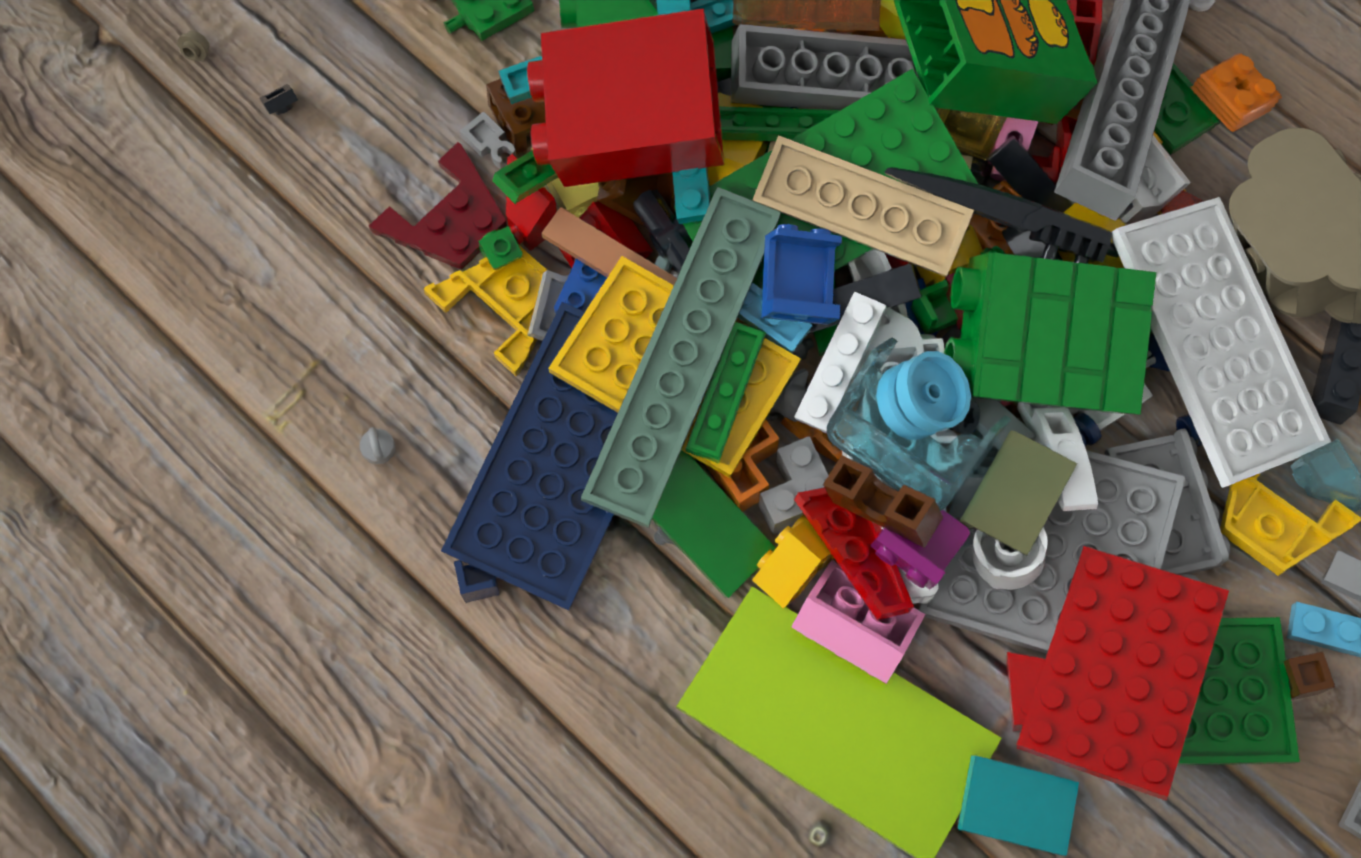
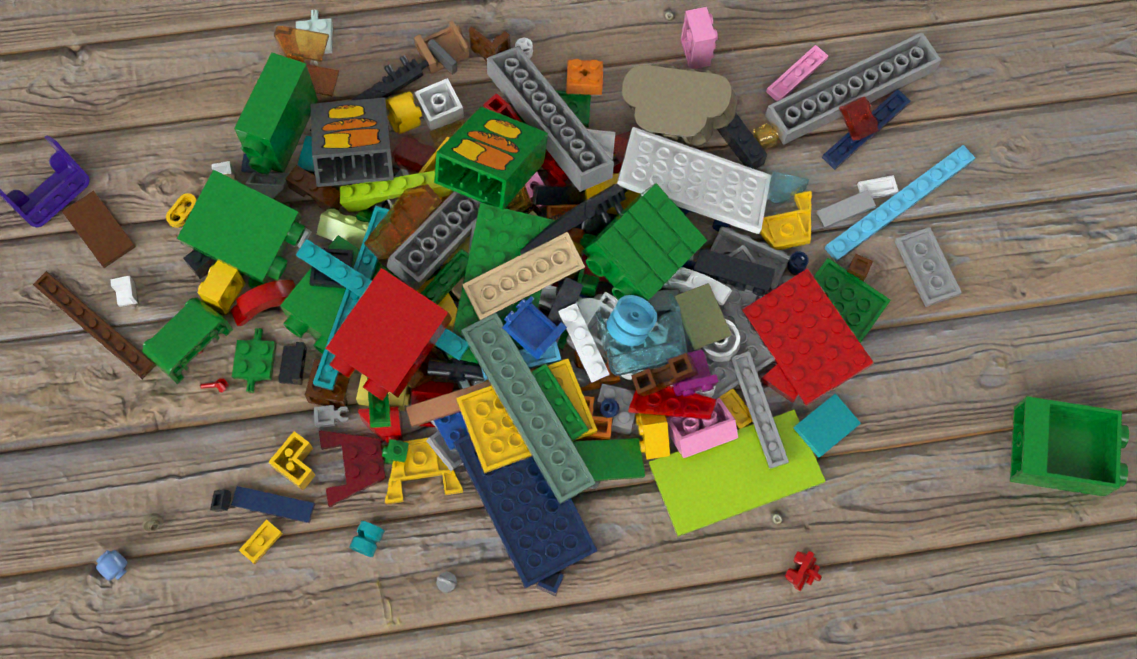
camera: 55 degrees left, 0 degrees up
(106, 42) = (111, 565): none -> medium blue head
(260, 183) = (260, 542): none -> yellow plate
(321, 164) = (273, 504): none -> dark blue tile
(357, 302) = (366, 539): none -> teal wheel
(387, 135) = (289, 461): none -> yellow brick
(519, 47) = (293, 364): none -> black panel
(779, 470) = (614, 408): none -> dark blue plate
(931, 653) = (736, 408): none -> yellow plate
(953, 685) = (759, 410): none -> light grey plate
(1131, 494) = (735, 272): none -> black brick
(1237, 574) = (800, 259): none -> dark blue wheel

